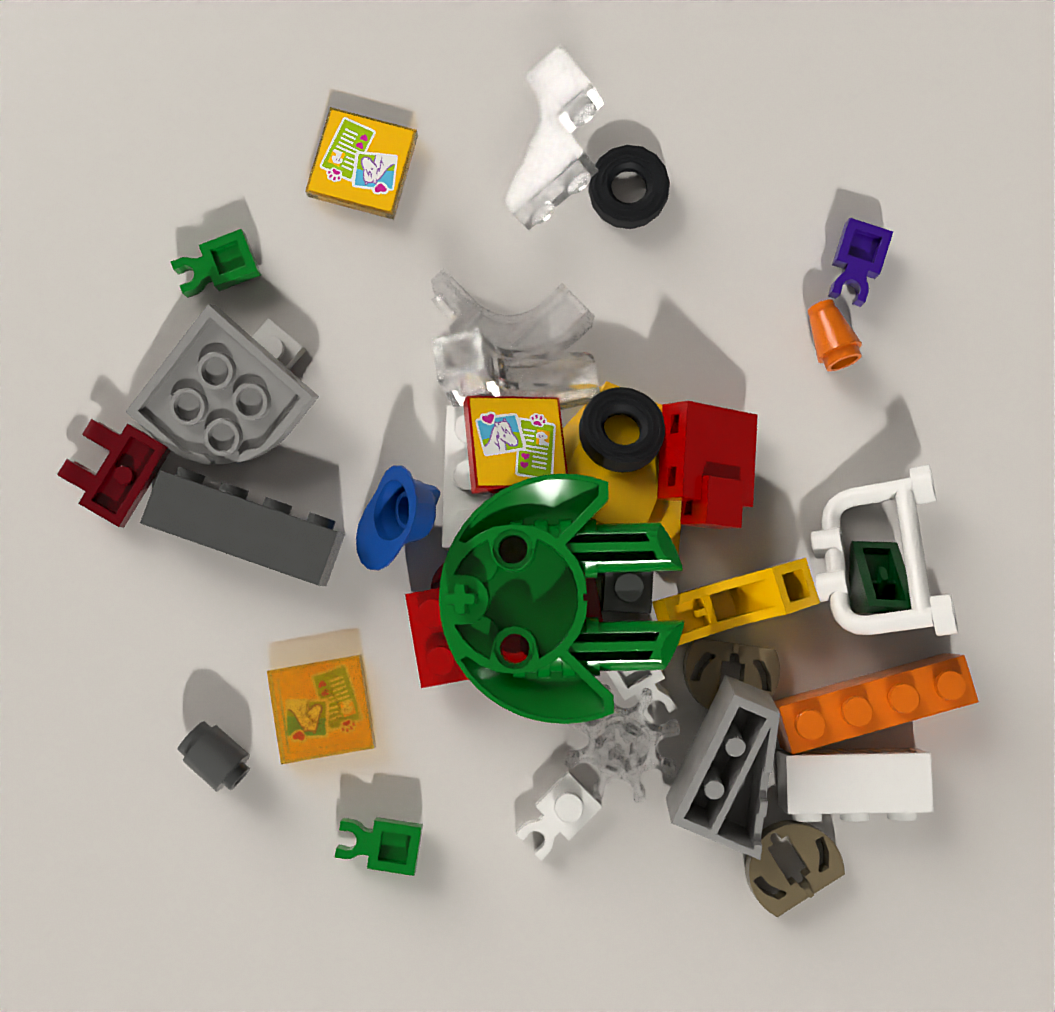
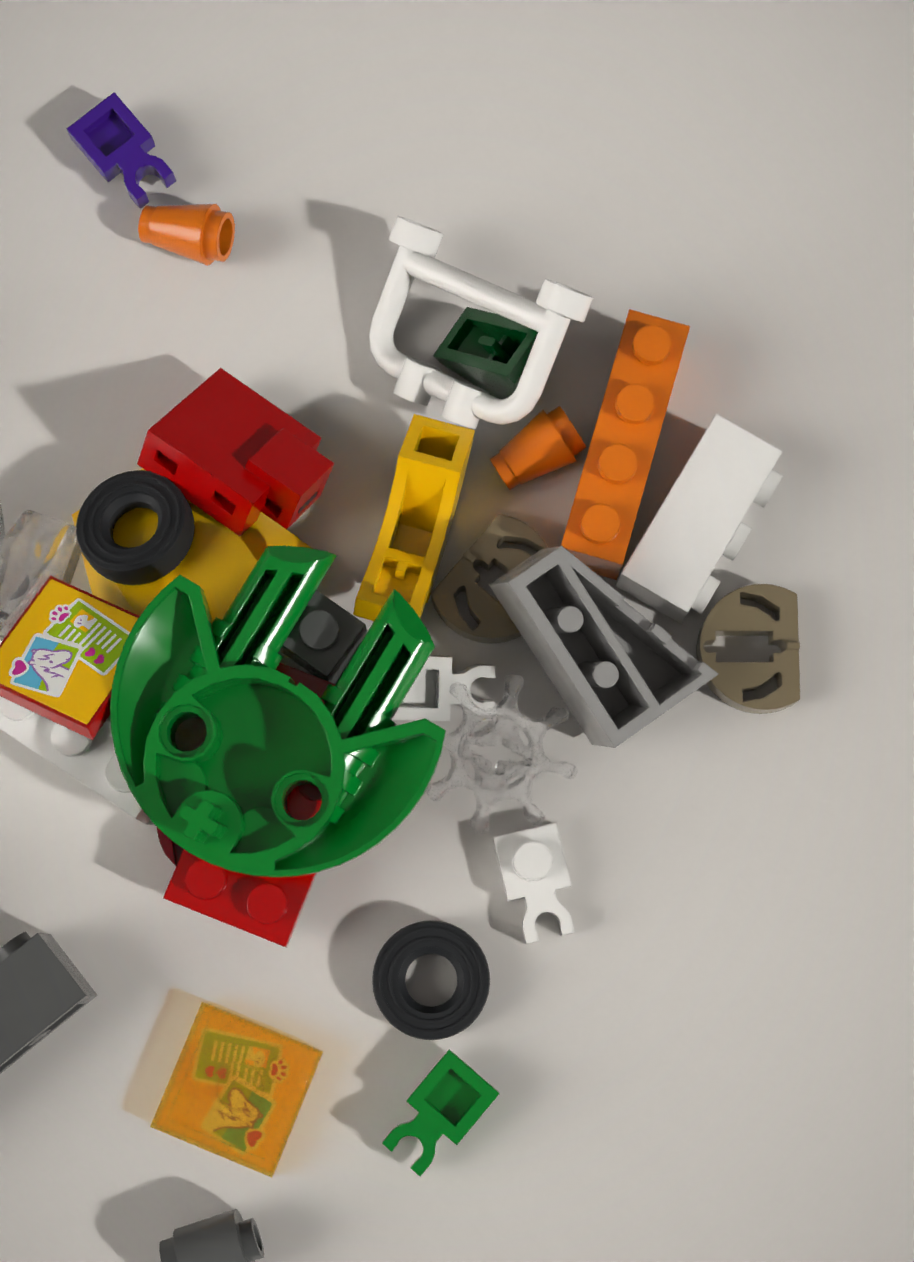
camera: 60 degrees left, 5 degrees down
(396, 515) = (65, 855): blue piece -> none
(457, 817) = (391, 990): none -> black tyre
(834, 648) = (538, 449): none -> orange cone

